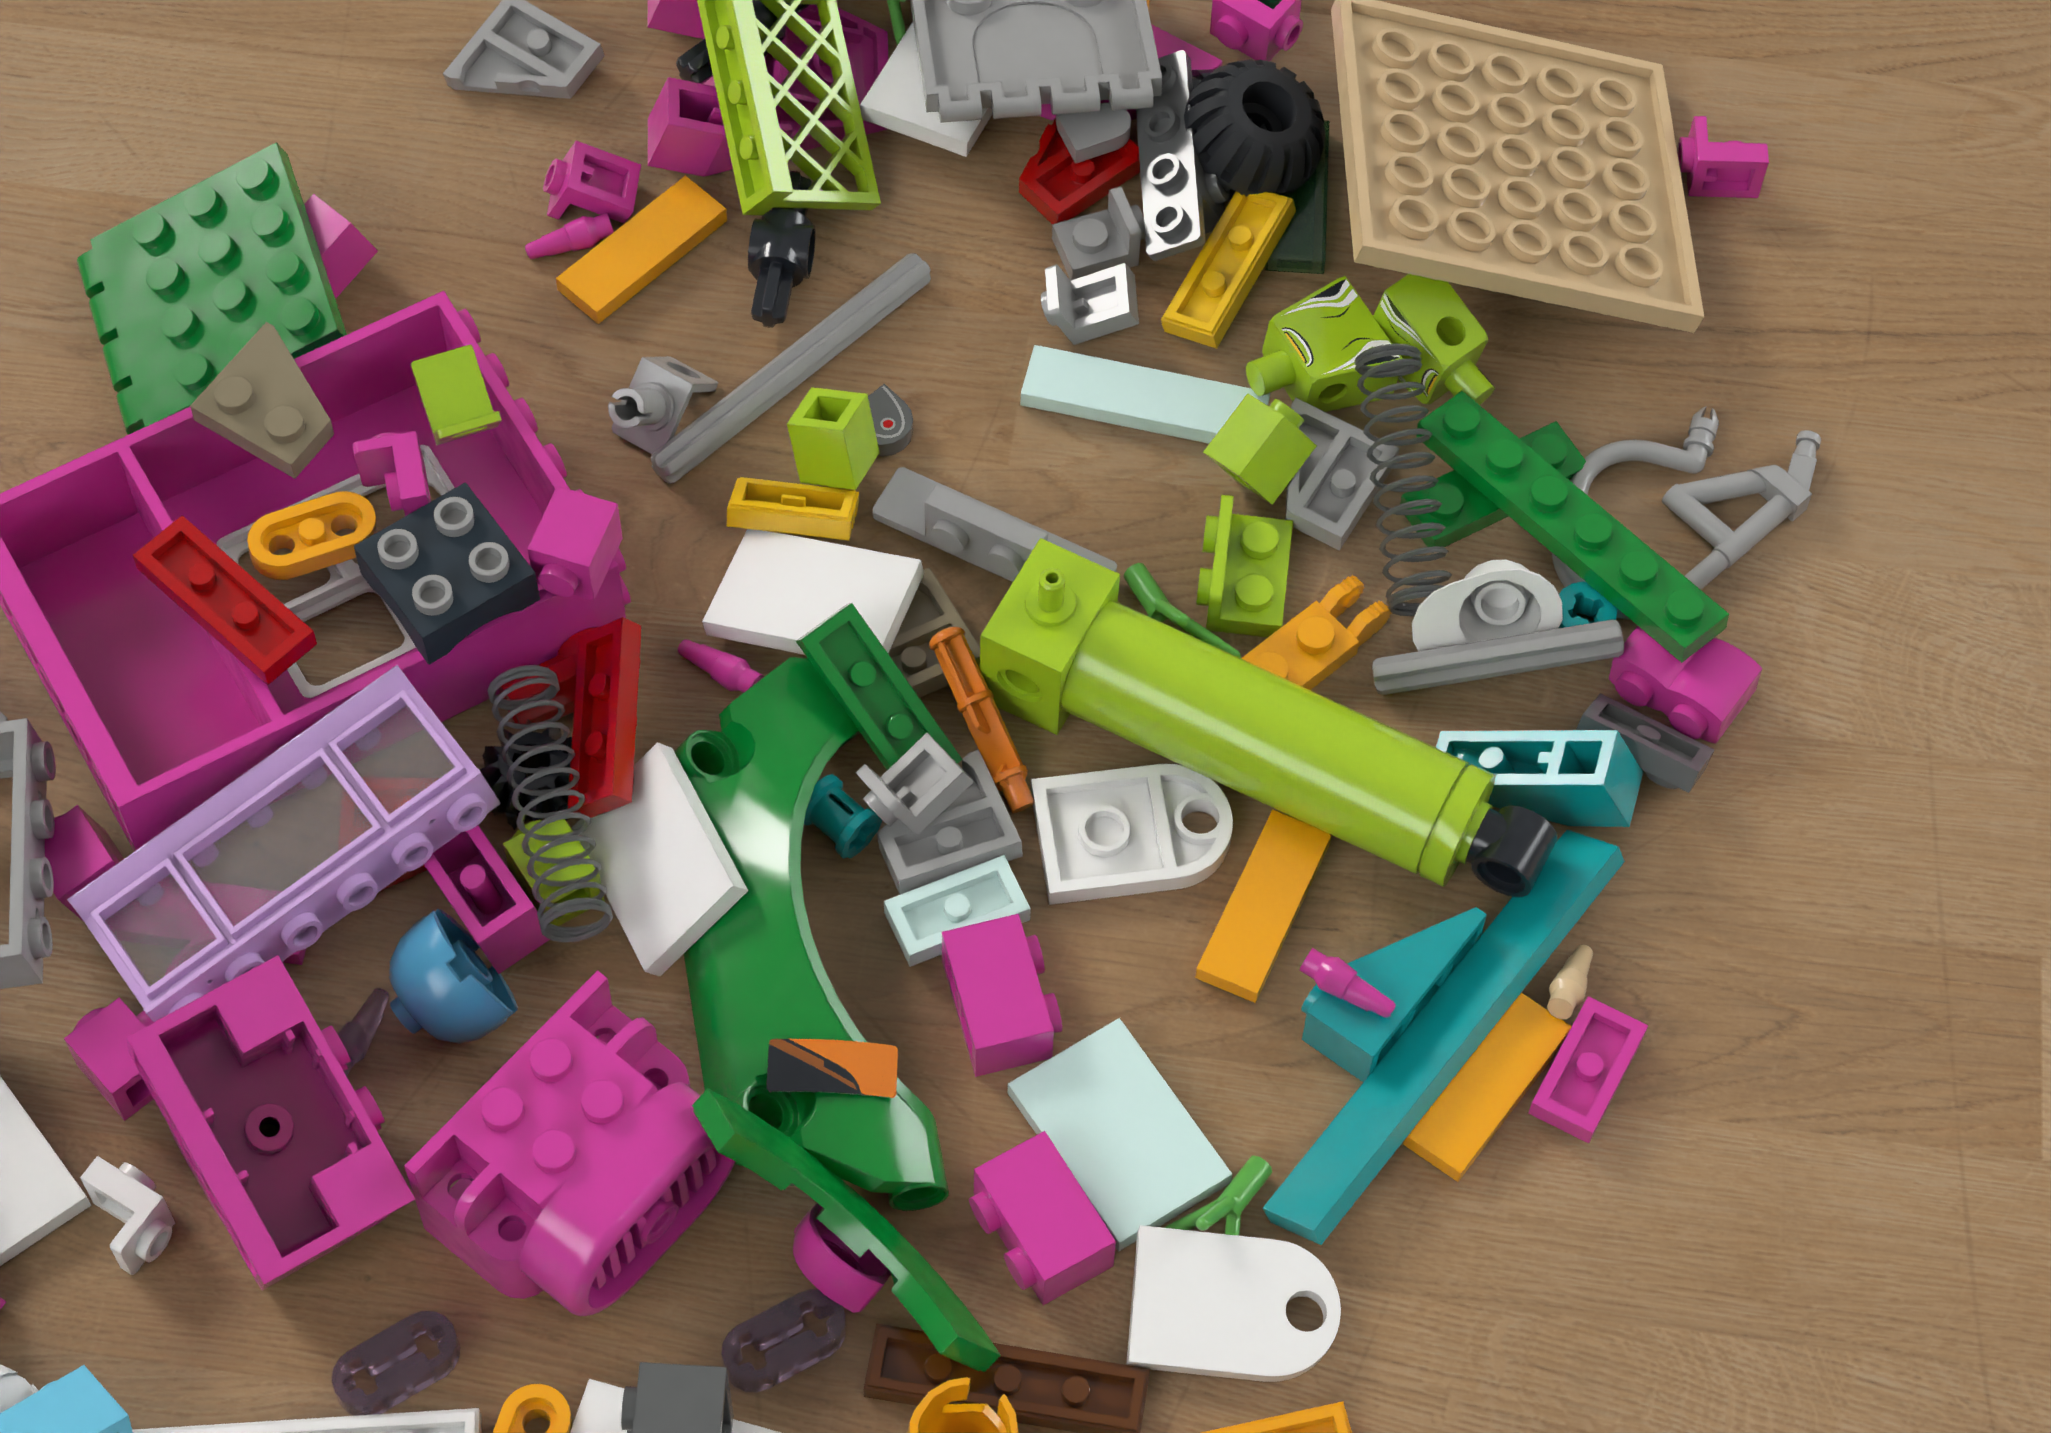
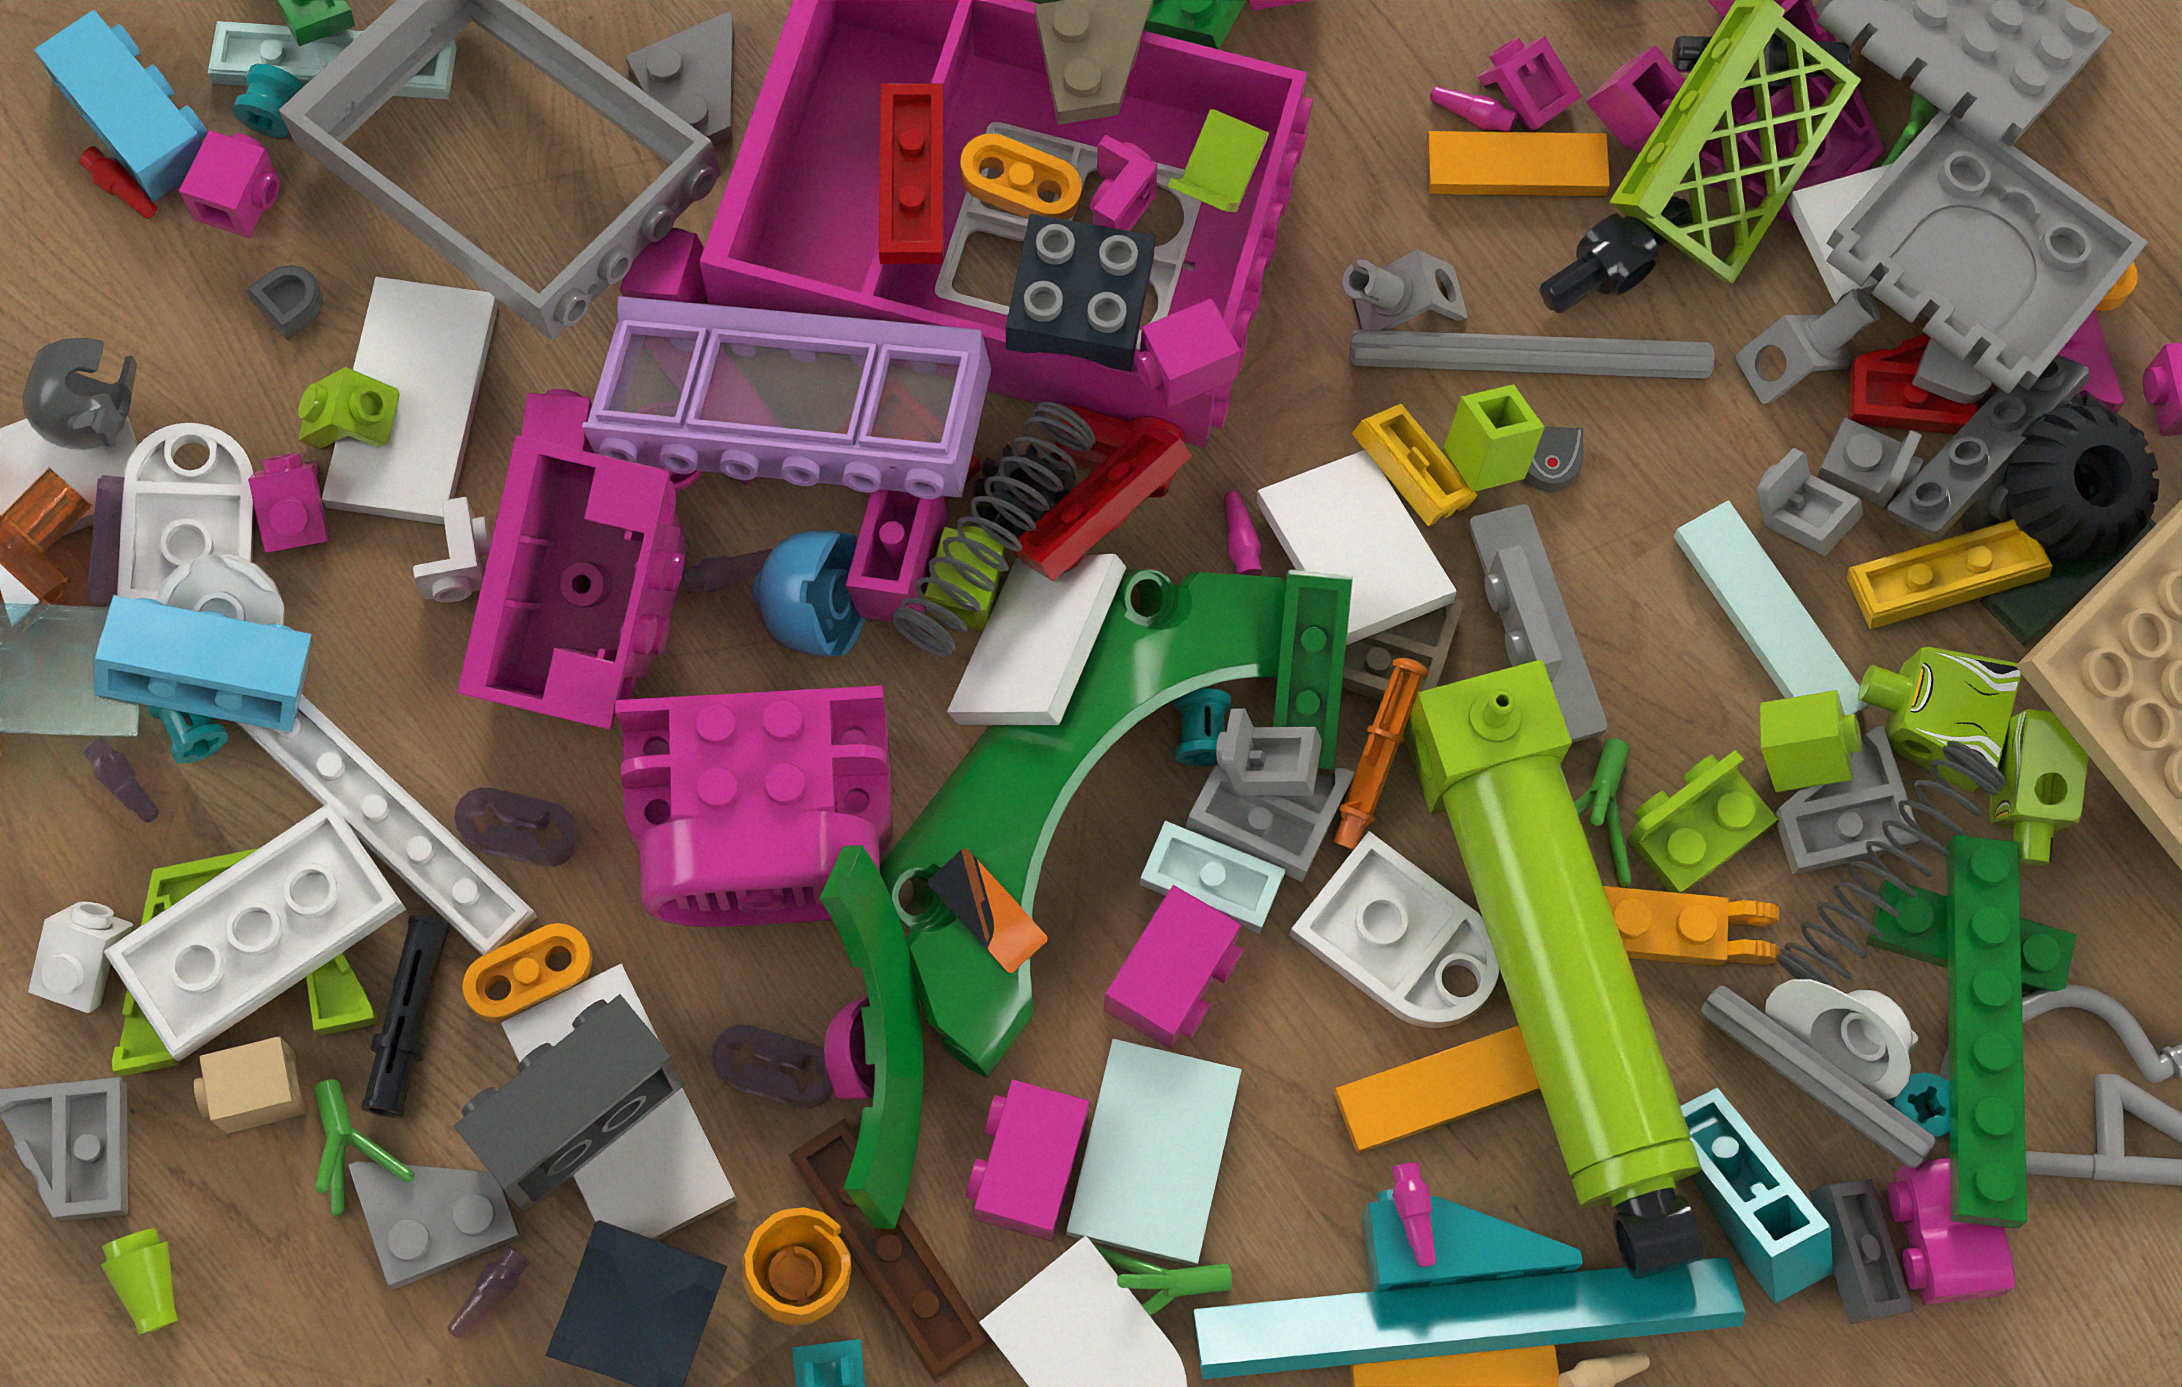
camera: 45 degrees right, 10 degrees up
(978, 194) = (1808, 344): none -> light grey bracket

